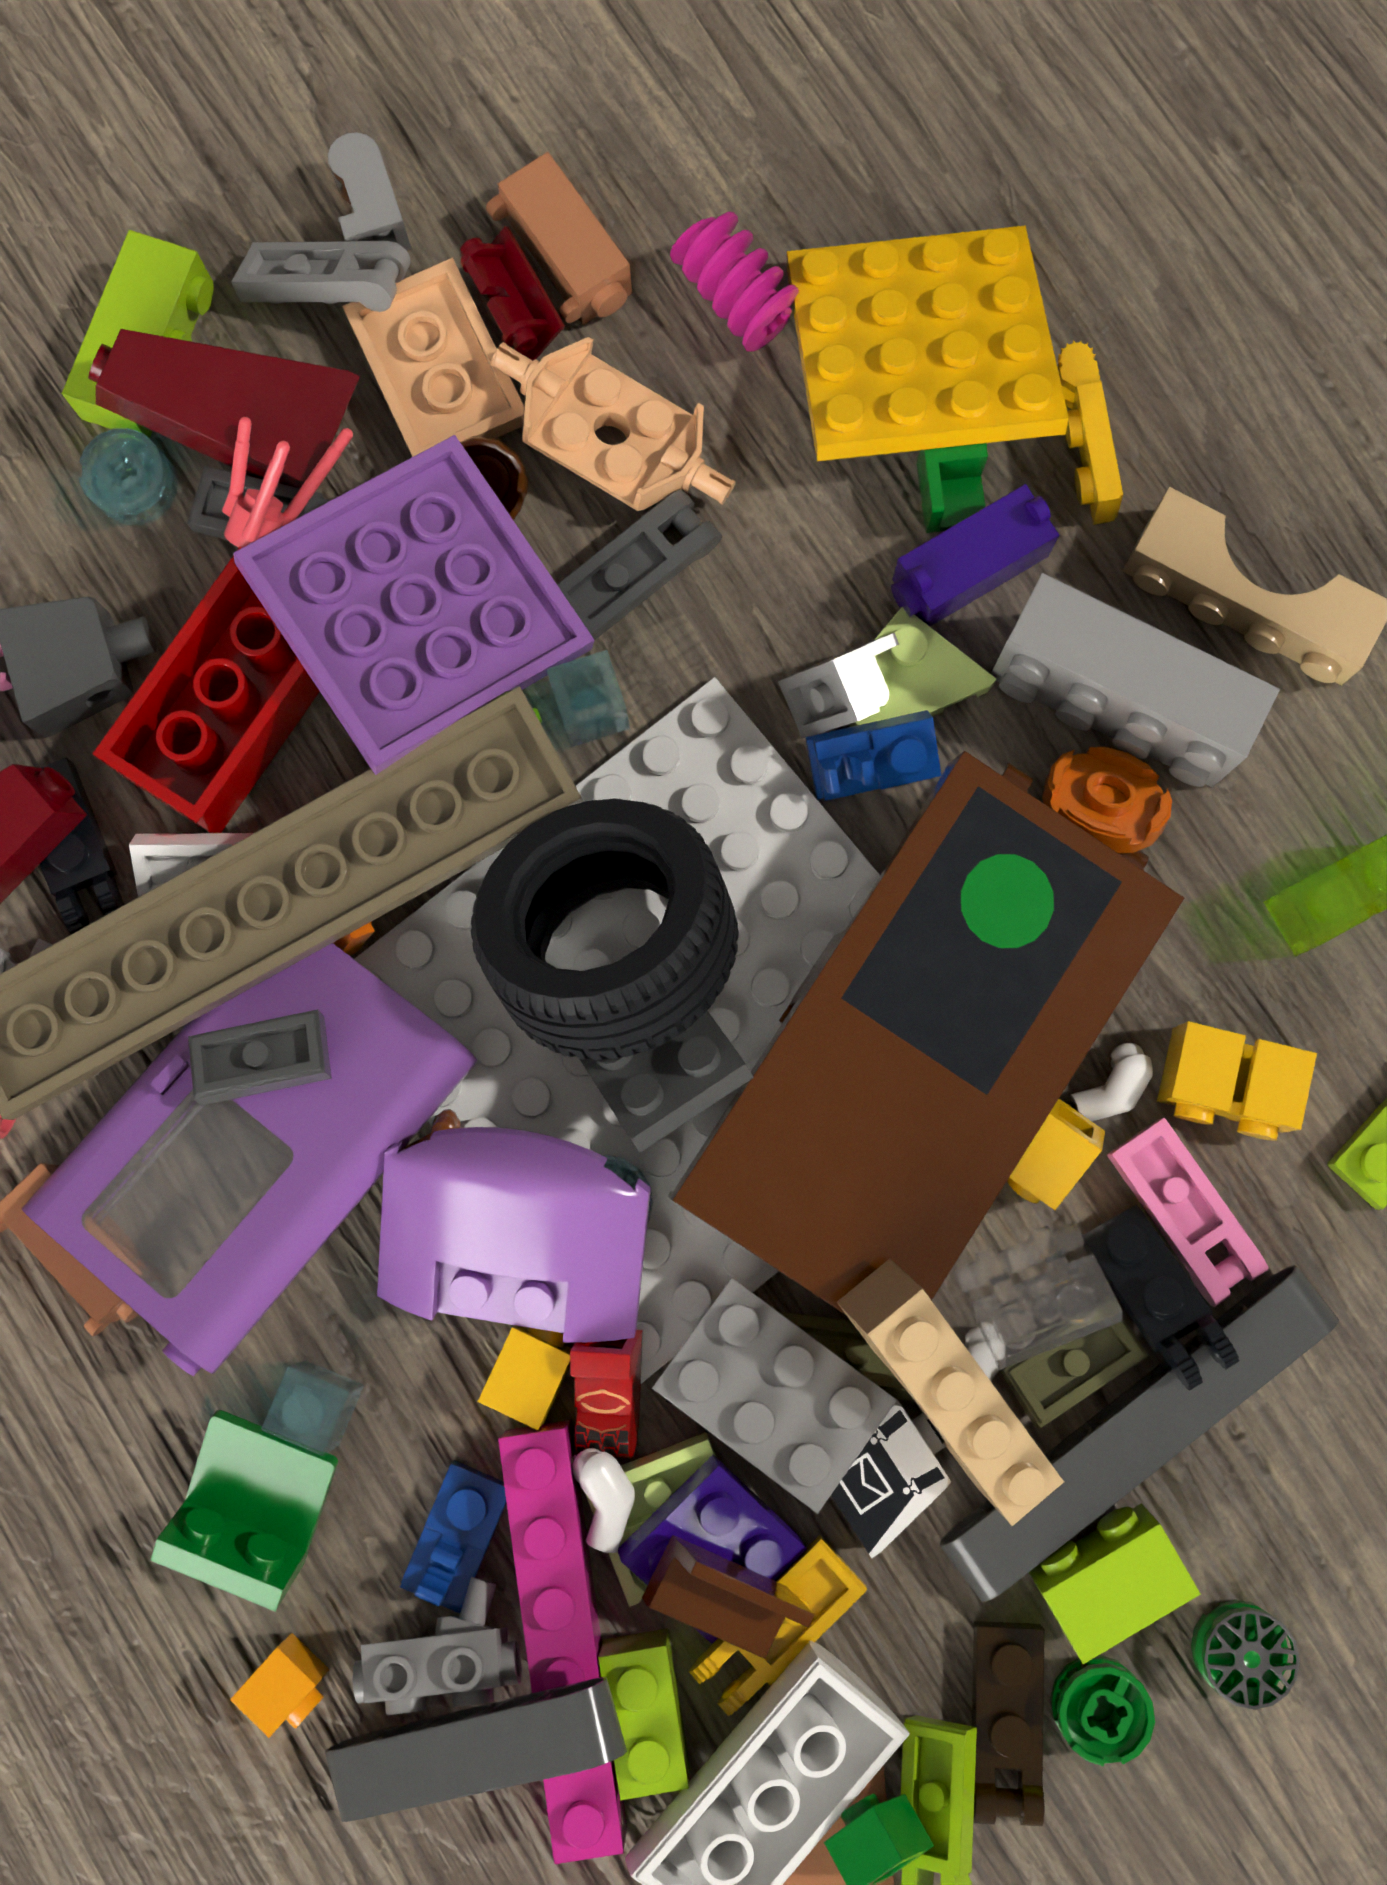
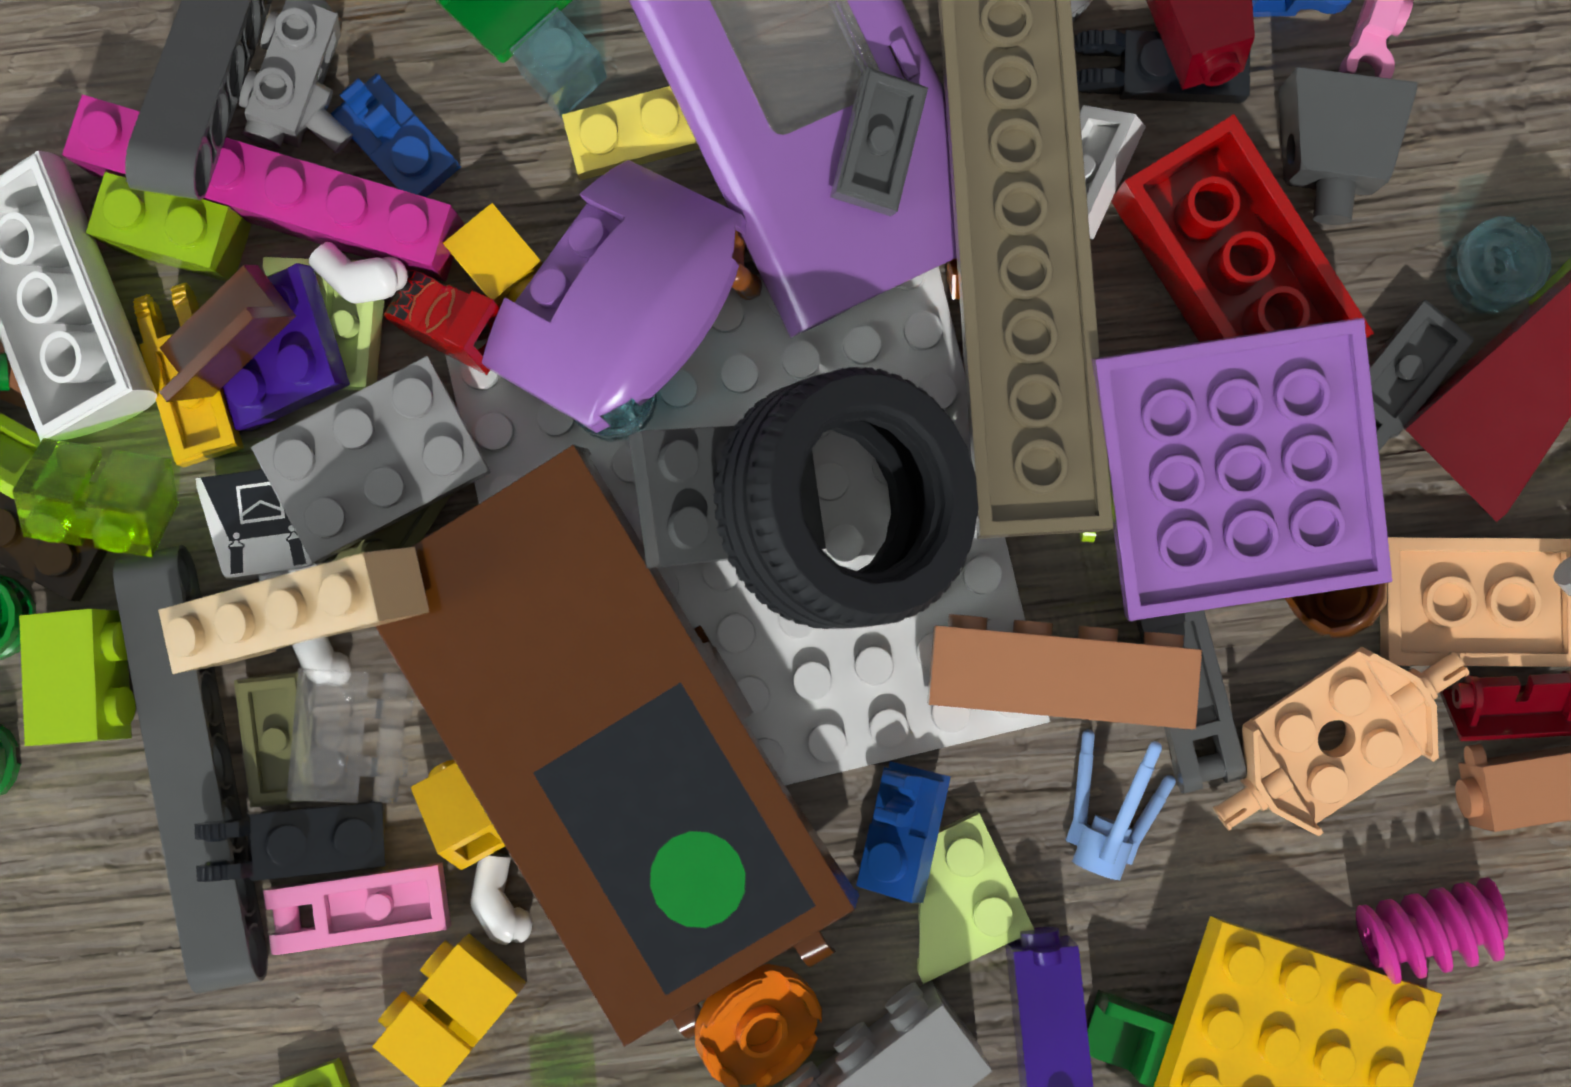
camera: 110 degrees right, 5 degrees up
(259, 510) = (1401, 365): coral plant -> none
(349, 1311) = (625, 129): none -> light yellow plate
(588, 698) = (1079, 591): clear light blue brick -> none
(670, 677) = (1063, 675): none -> nougat brick
(797, 578) = (1110, 843): none -> light blue plant
(838, 688) = (979, 829): light grey panel -> none
(939, 1620) = (119, 511): none -> clear neon green piece

